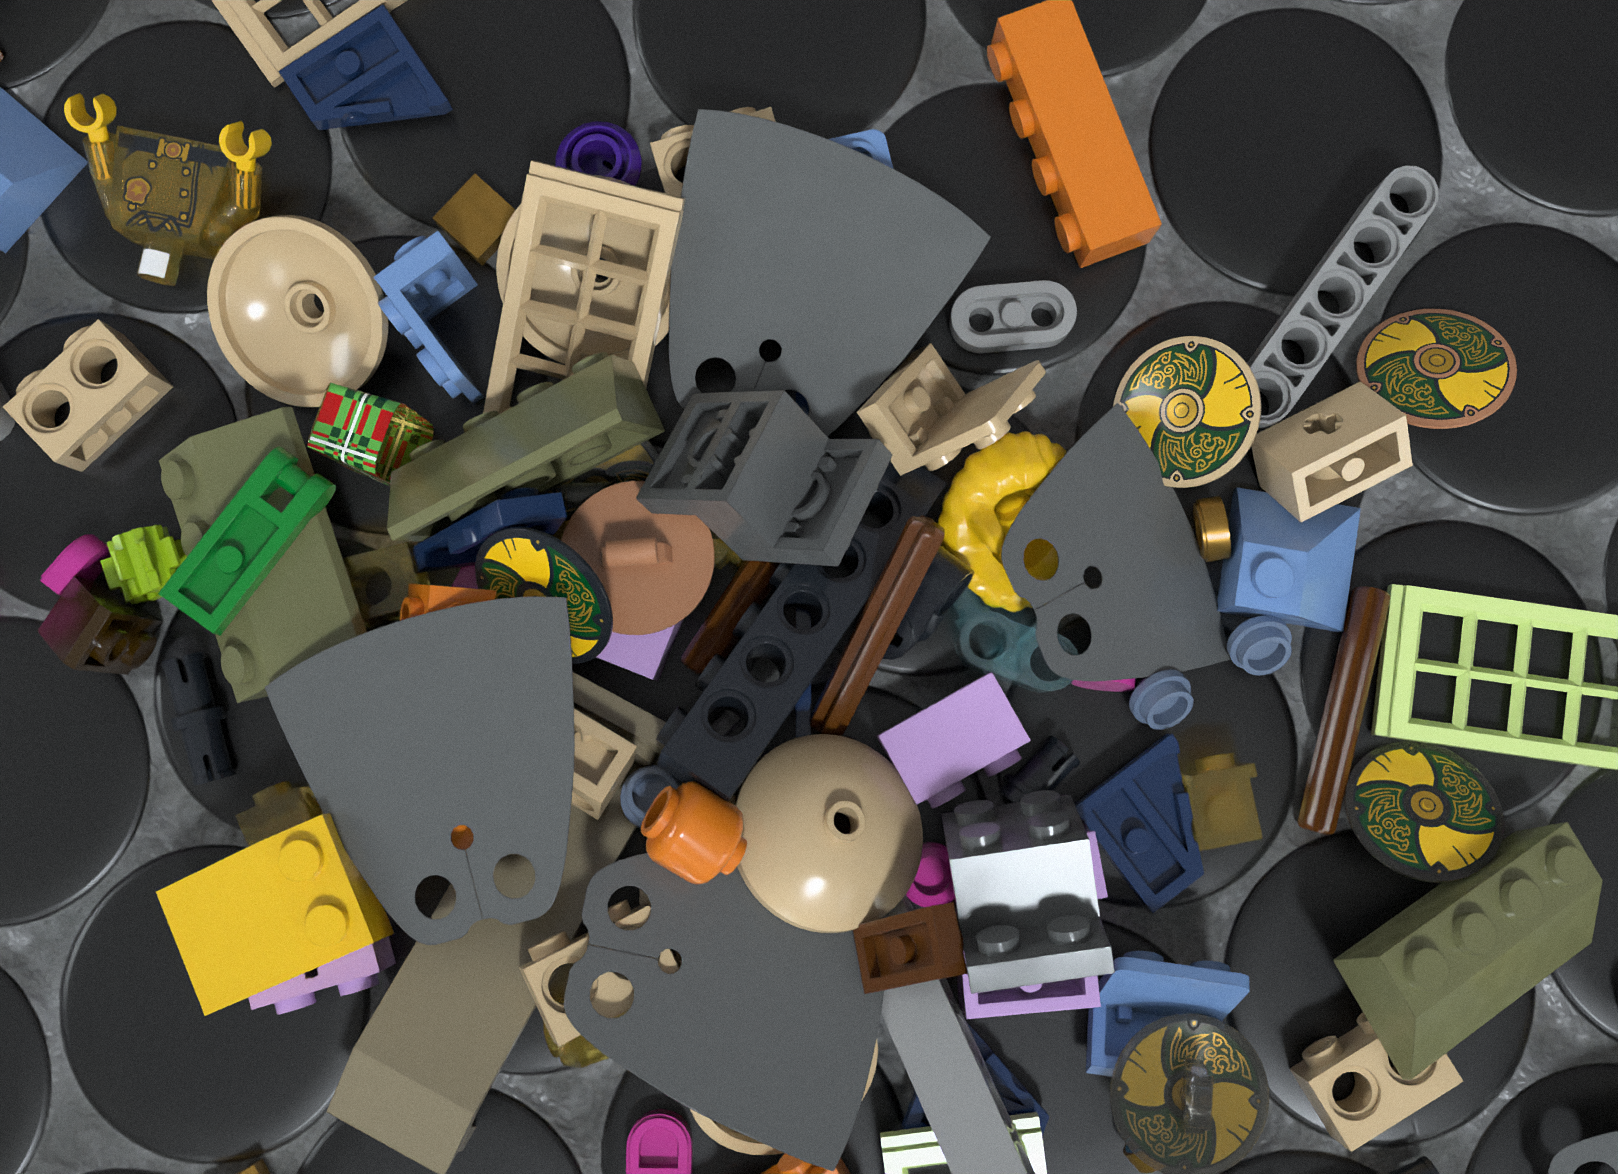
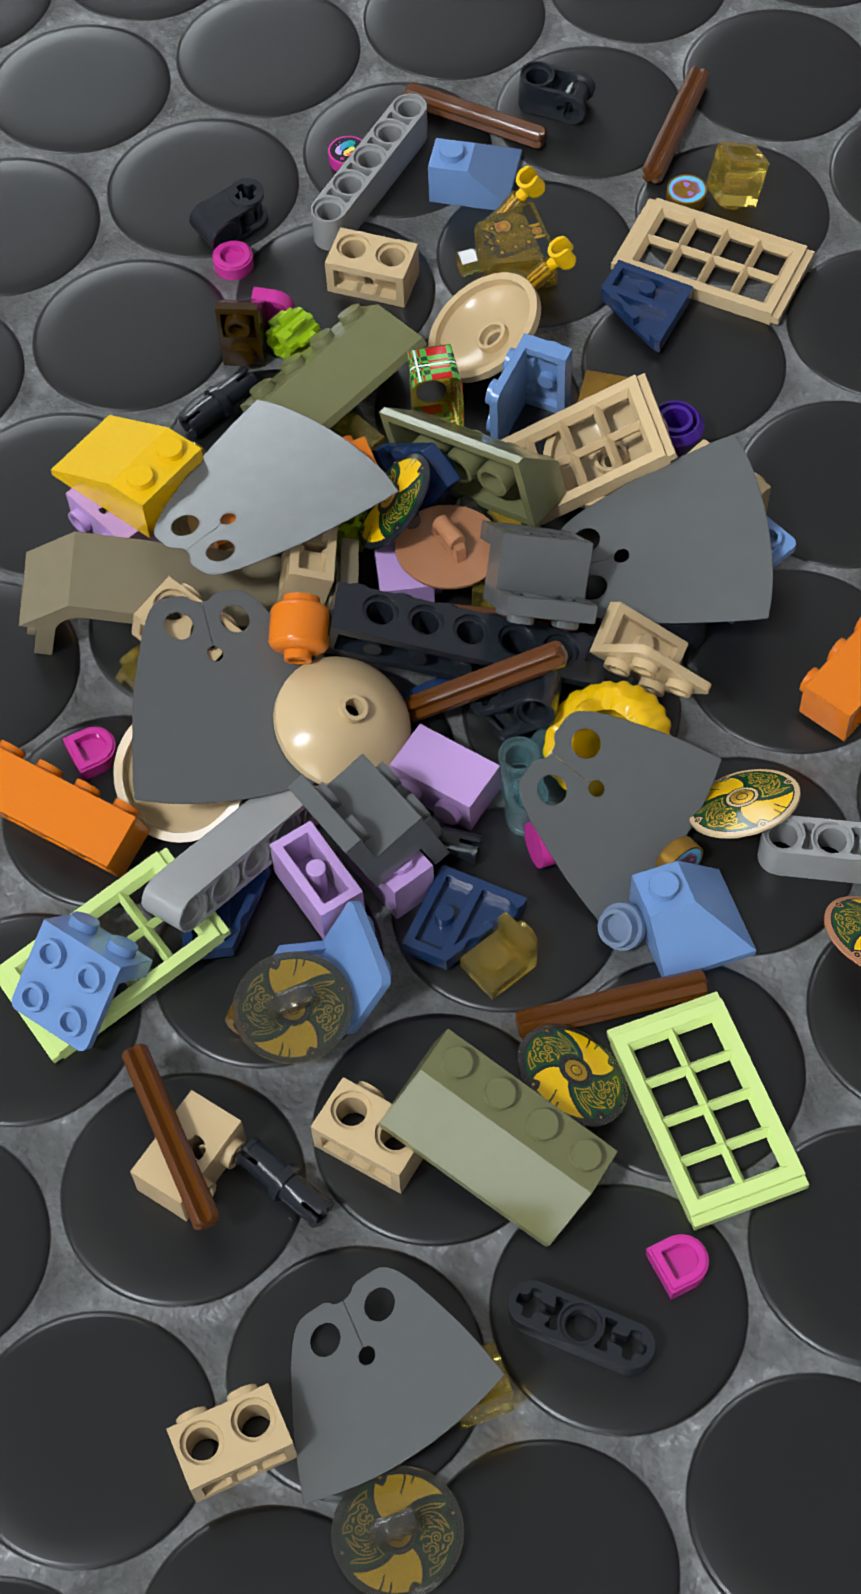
camera: 65 degrees right, 25 degrees down
(246, 542) = (336, 349): green plate -> none
(910, 948) = (309, 764): reddish brown plate -> none
(1010, 316) = (743, 685): light grey plate -> none
(1162, 699) = (547, 884): sand blue plate -> none
(1332, 451) = (775, 895): tan brick -> none

